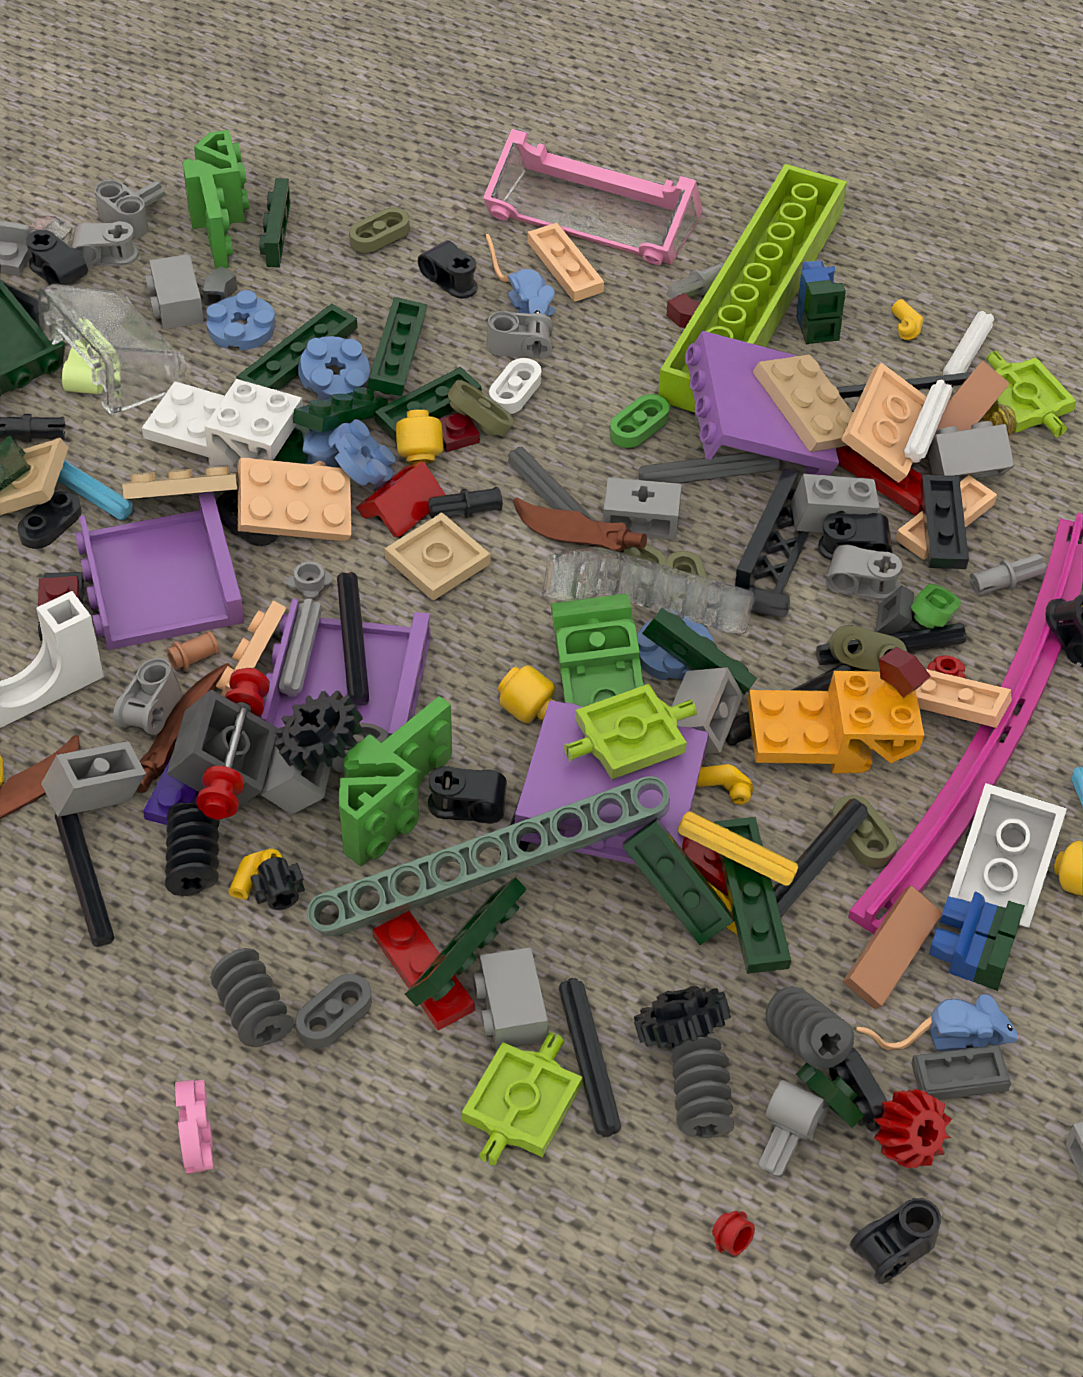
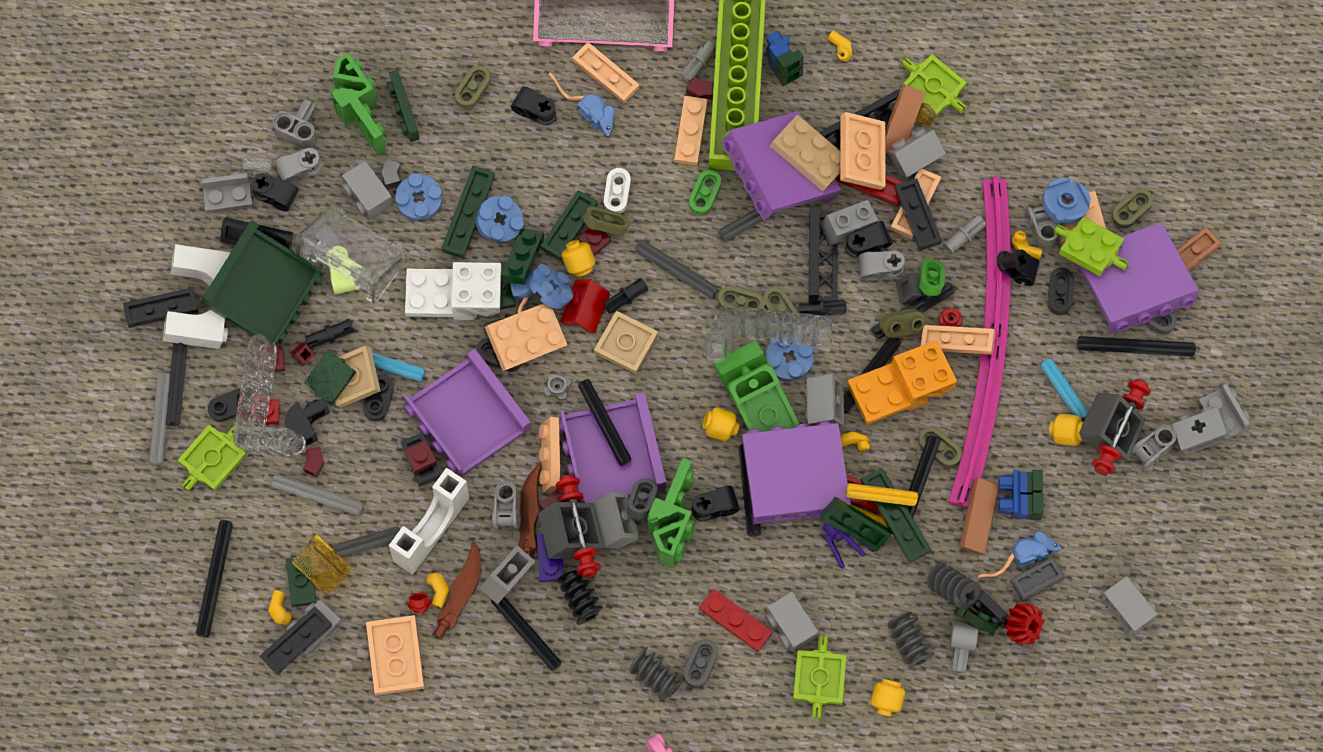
camera: 20 degrees left, 20 degrees up
(180, 482) = (451, 348): tan plate -> none
(192, 651) = (514, 461): nougat pin -> none
(242, 883) = (616, 593): yellow arm -> none
(277, 883) = (637, 599): black gear -> none
(300, 647) = (578, 440): light grey axle -> none
(318, 731) = (618, 515): black gear -> none
(397, 347) = (531, 187): dark green plate -> none
(458, 953) = (756, 600): dark green plate -> none
(468, 855) = (746, 560): sand green beam -> none
(516, 334) = (608, 147): light grey piece -> none
(576, 528) = (700, 293): copper sword -> none
(589, 1058) = (843, 639): black axle -> none
(626, 1167) = (888, 697): none -> yellow head
(630, 731) = (797, 442): lime plate -> none
(643, 506) = (725, 271): light grey brick -> none
(645, 897) = (834, 533): none -> dark purple plant
(648, 356) = (690, 130): none -> light nougat plate
(681, 1016) = (886, 603): black gear -> none
(694, 650) = (809, 364): dark green plate -> none
(733, 1232) = (953, 711): red plate -> none
(892, 1245) = (1032, 688): black piece -> none
(902, 671) = (934, 348): dark red piece -> none
(928, 421) = (885, 141): white axle -> none
(969, 344) = (886, 56): white axle -> none
(1008, 850) = (1022, 435): white slope -> none

